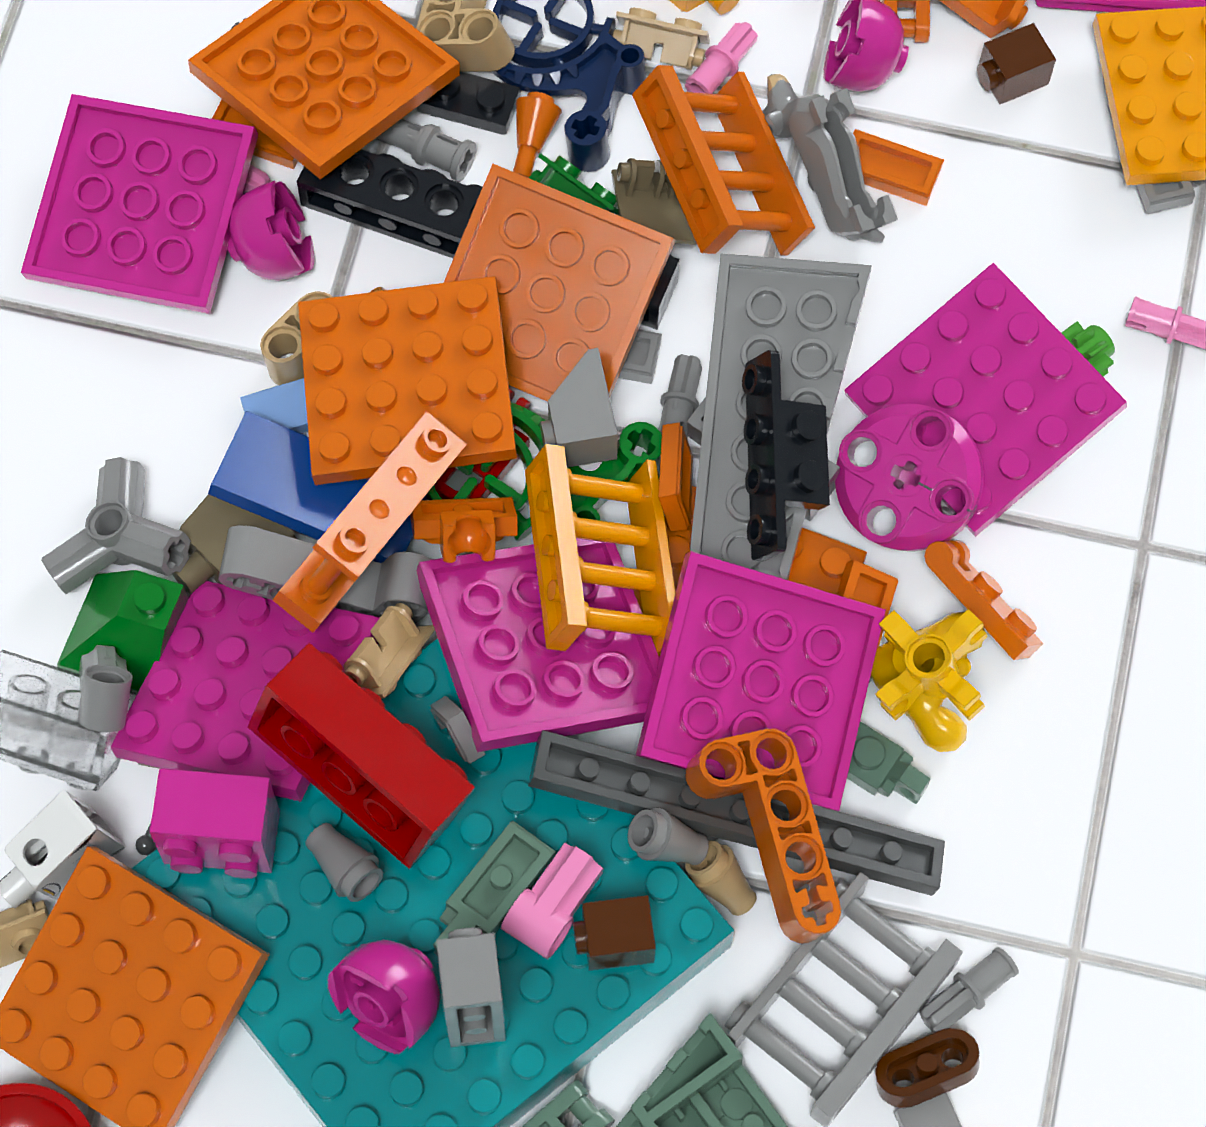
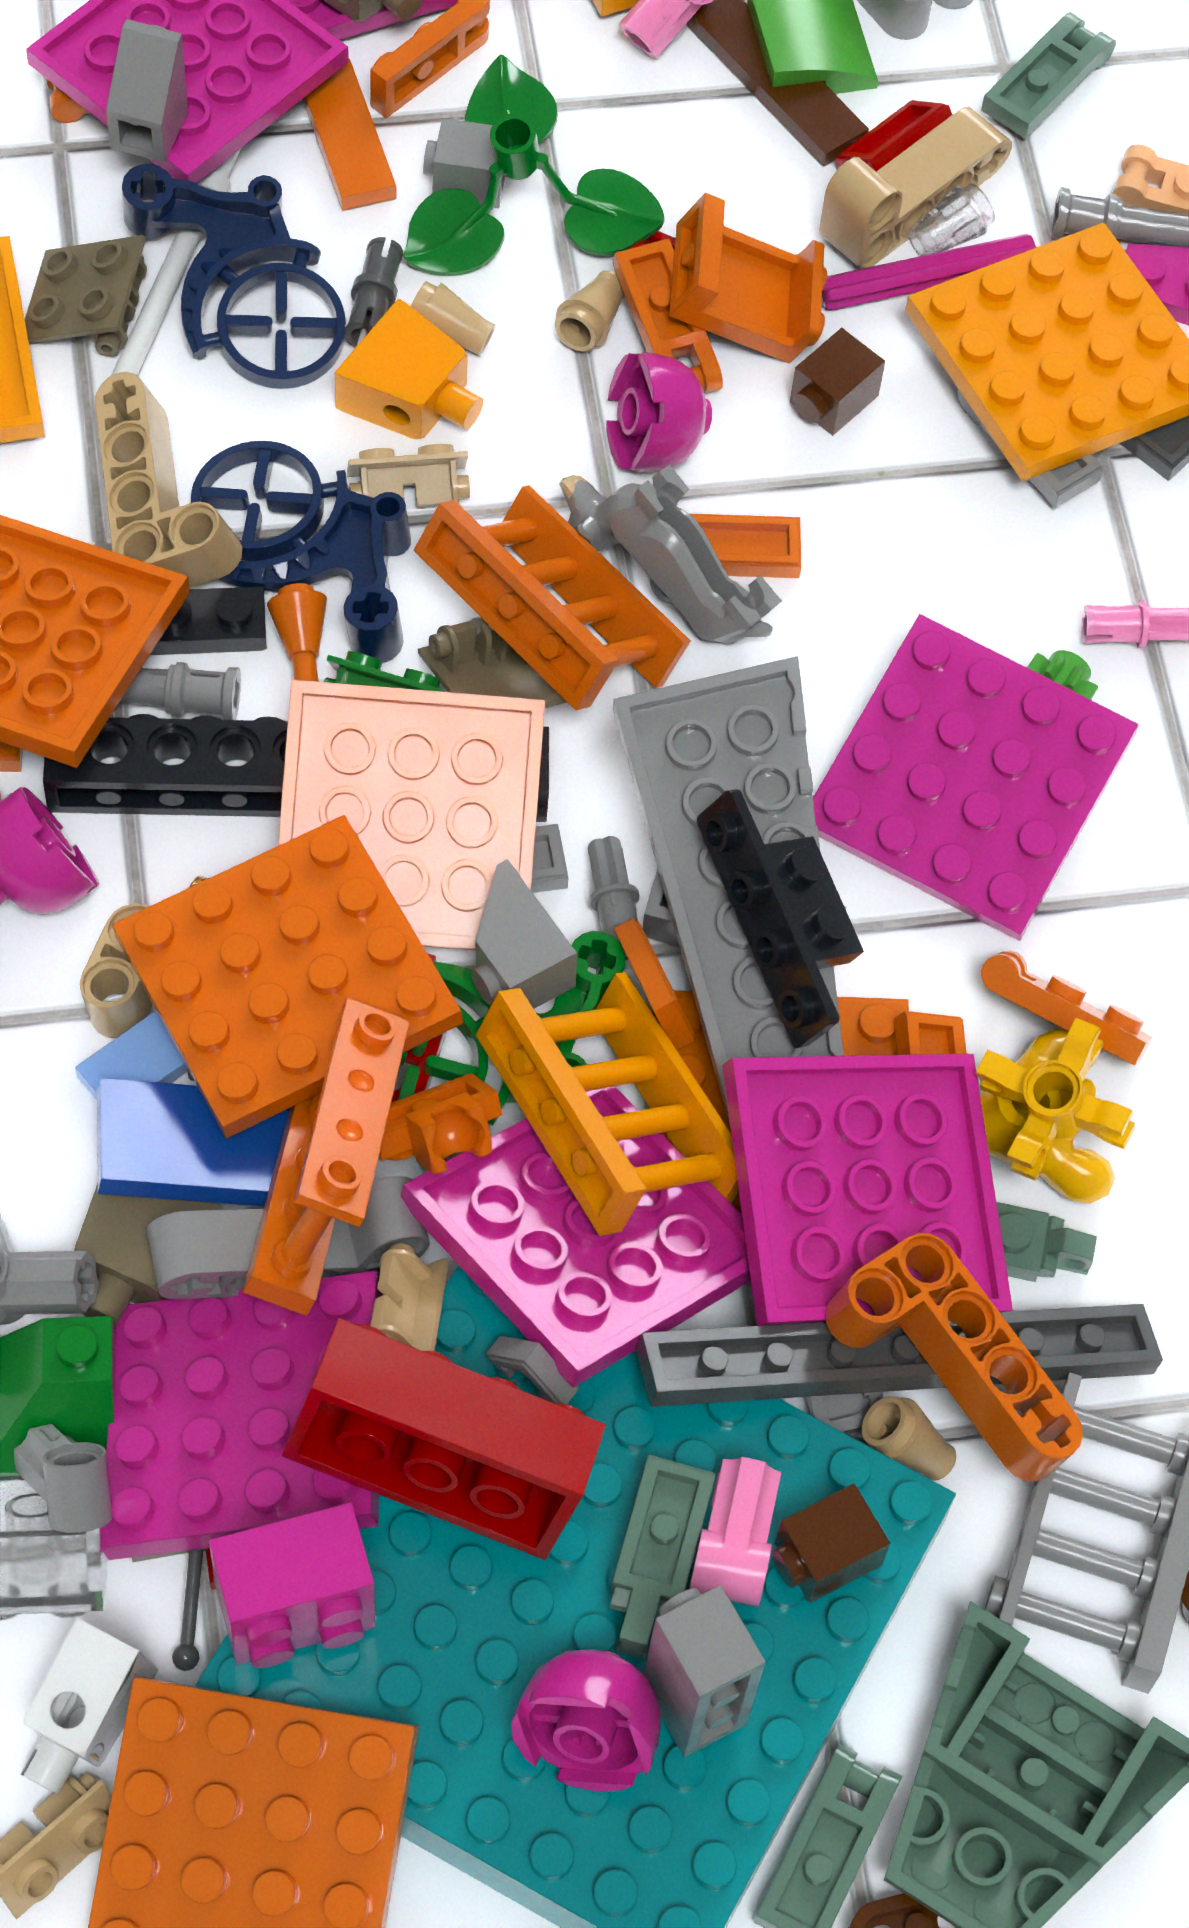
camera: 25 degrees left, 5 degrees down
(347, 865) = (466, 1580): light grey cone -> none
(663, 837) = (833, 1411): light grey cone -> none
(722, 59) = (493, 478): bright pink axle -> none
(909, 477) = (929, 892): dark pink piece -> none

